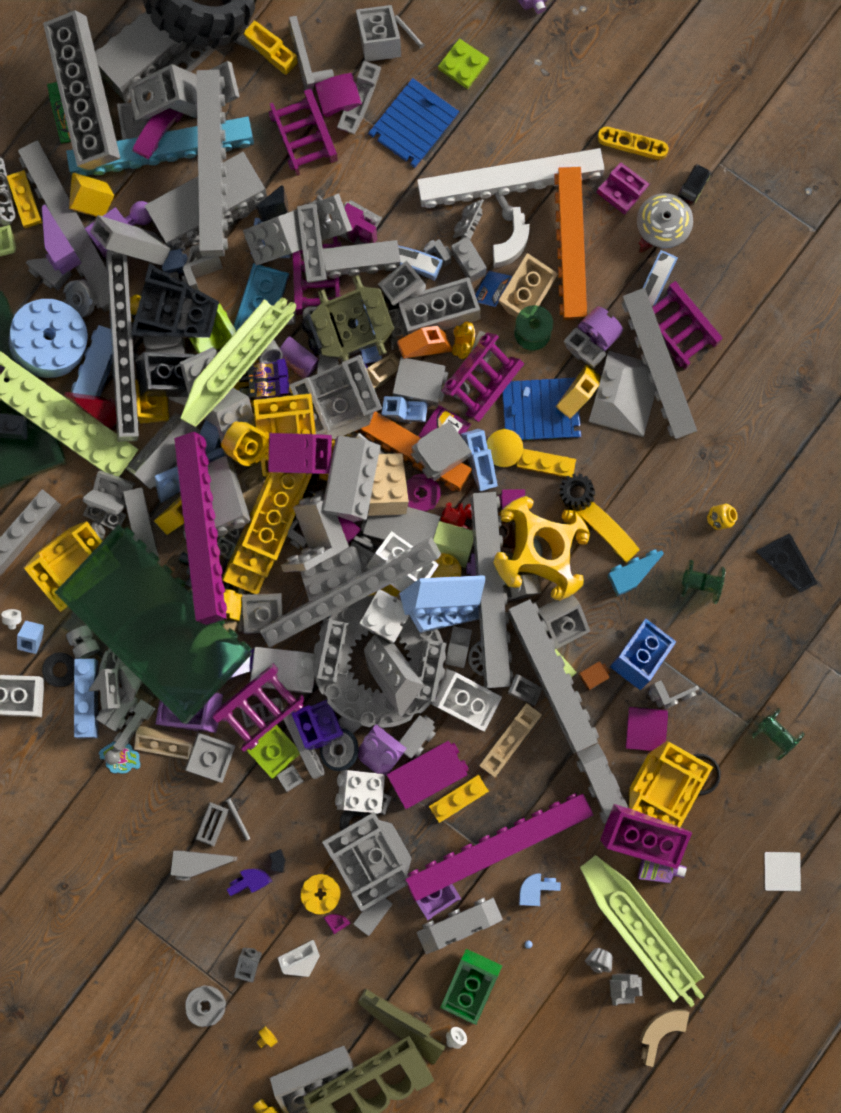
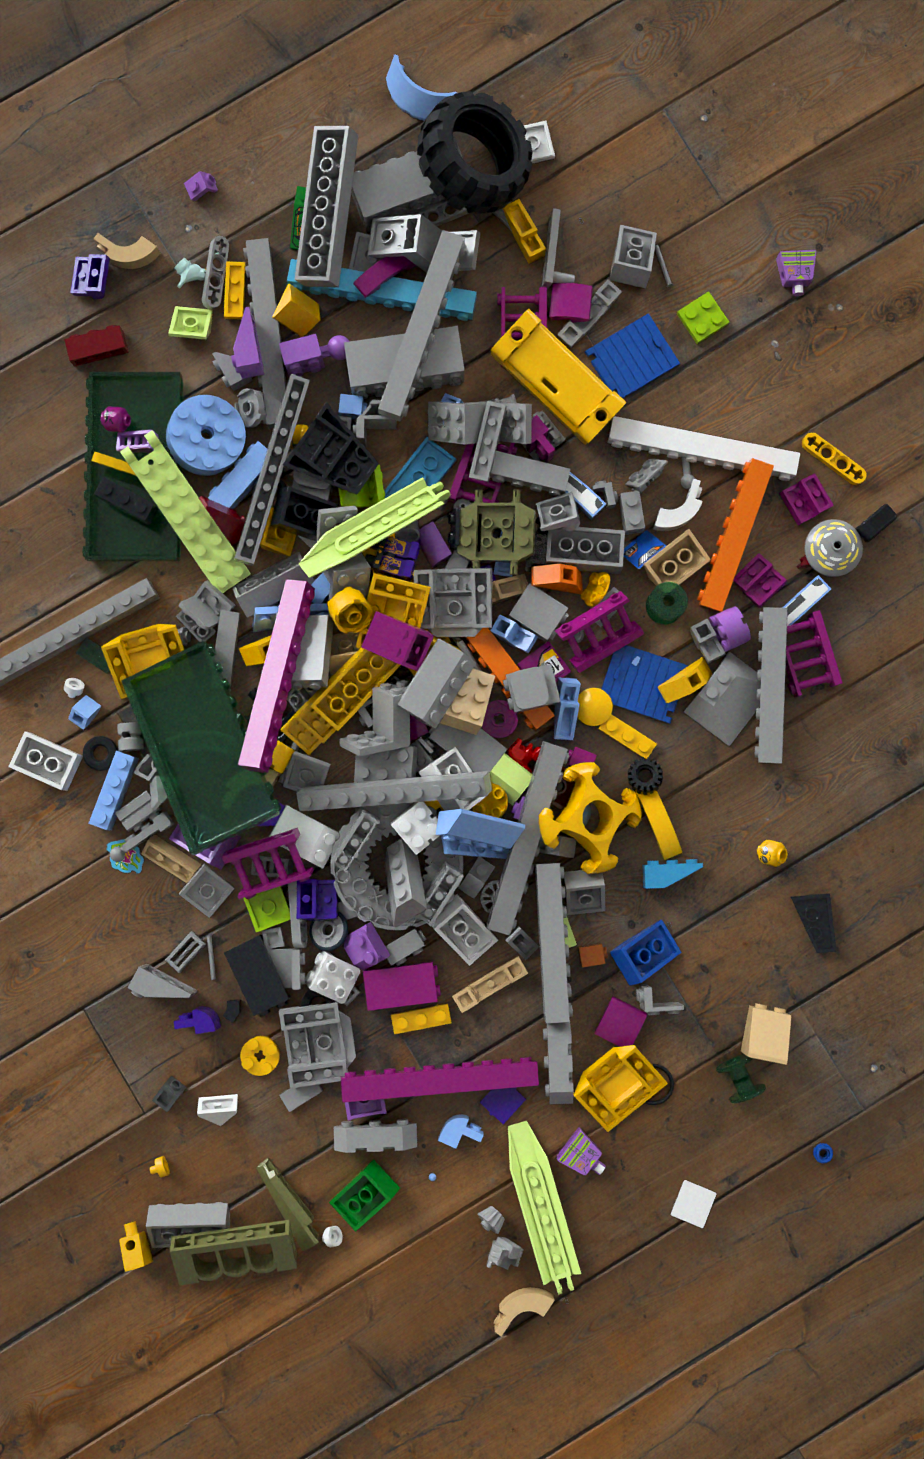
camera: 20 degrees right, 5 degrees up
(19, 580) = (93, 653): none -> clear green plate
(108, 685) = (137, 790): light grey slope -> none
(130, 240) = (316, 372): light grey brick -> none
(193, 1006) = (105, 1113): light grey plate -> none
(273, 205) = (467, 388): black slope -> none
(289, 819) = (257, 976): none -> black panel
(311, 802) = (289, 966): none -> light grey bracket
(336, 922) = (264, 1087): magenta tile -> none
(351, 164) = (556, 377): none -> yellow piece
(566, 846) = (502, 1102): none -> dark purple piece
(609, 276) = (759, 580): none -> magenta slope
(644, 837) = (577, 1126): magenta slope -> none
(703, 581) = (729, 908): clear green hose -> none
(785, 683) = (767, 1034): none -> tan slope

